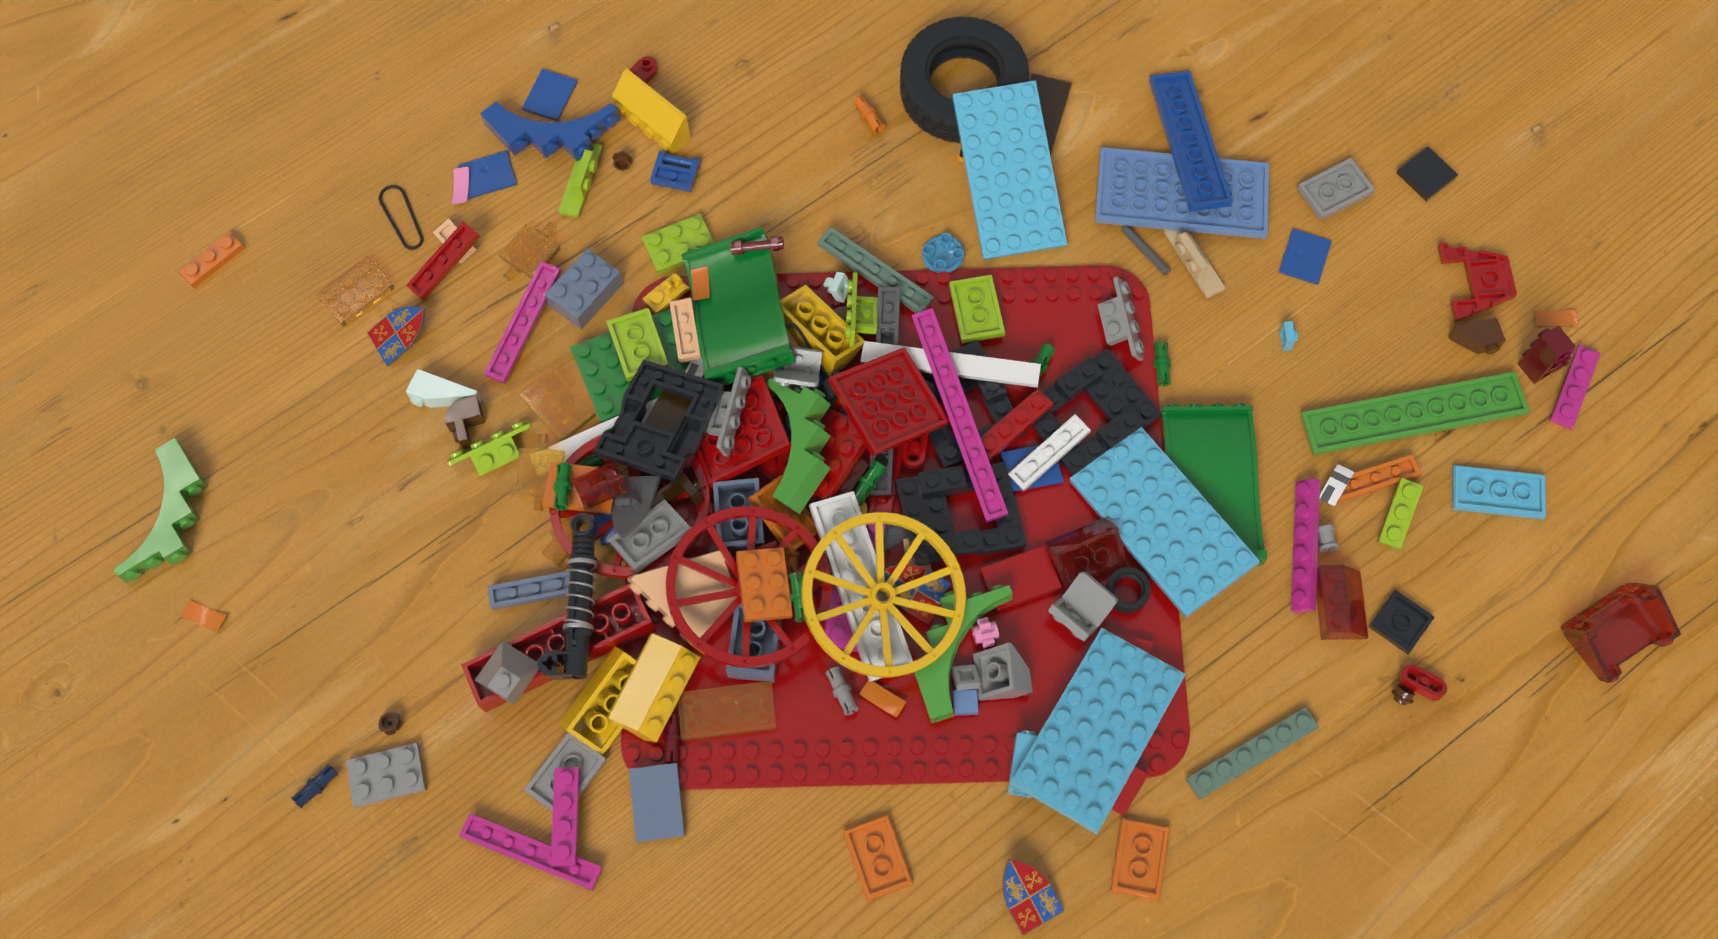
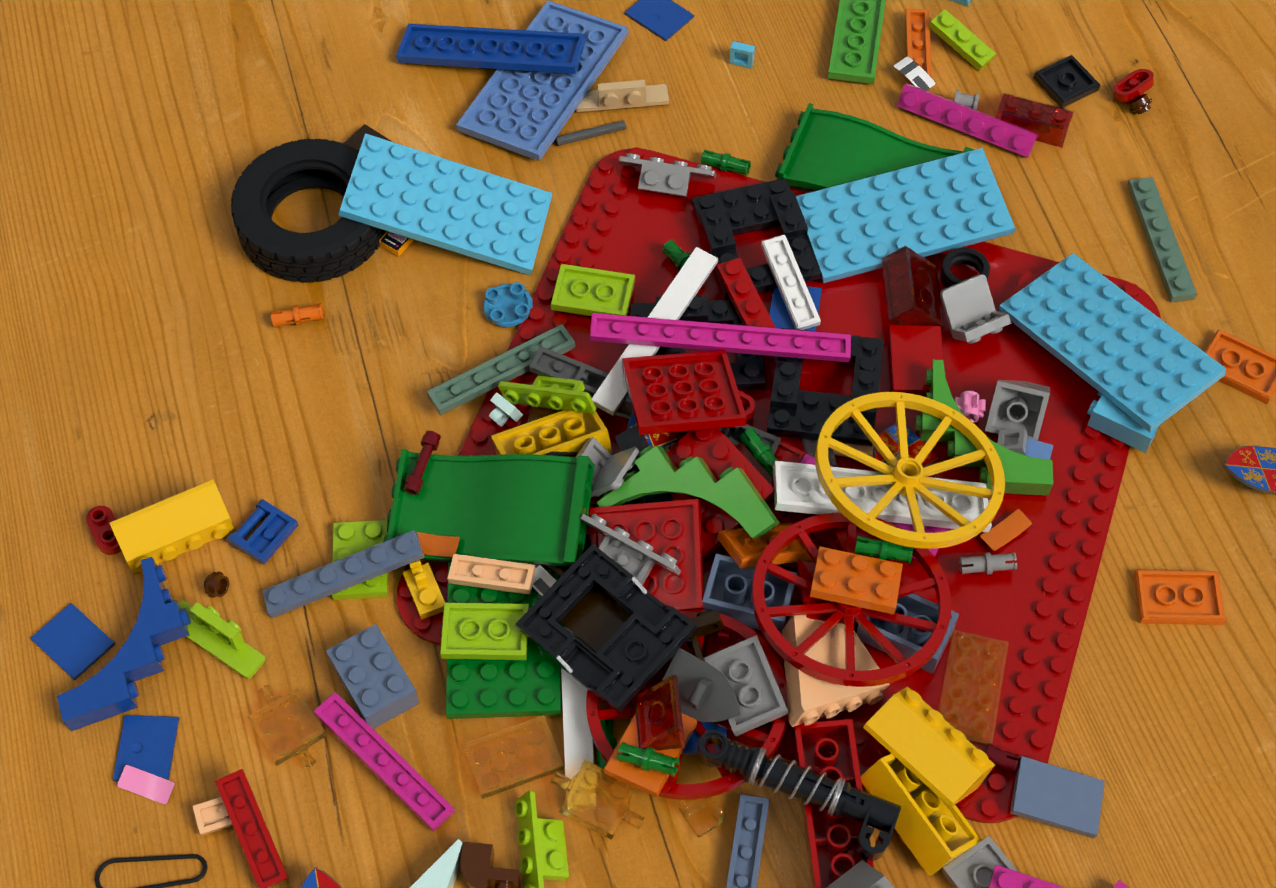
camera: 70 degrees left, 10 degrees down
(656, 236) = (343, 574): none -> sand blue plate

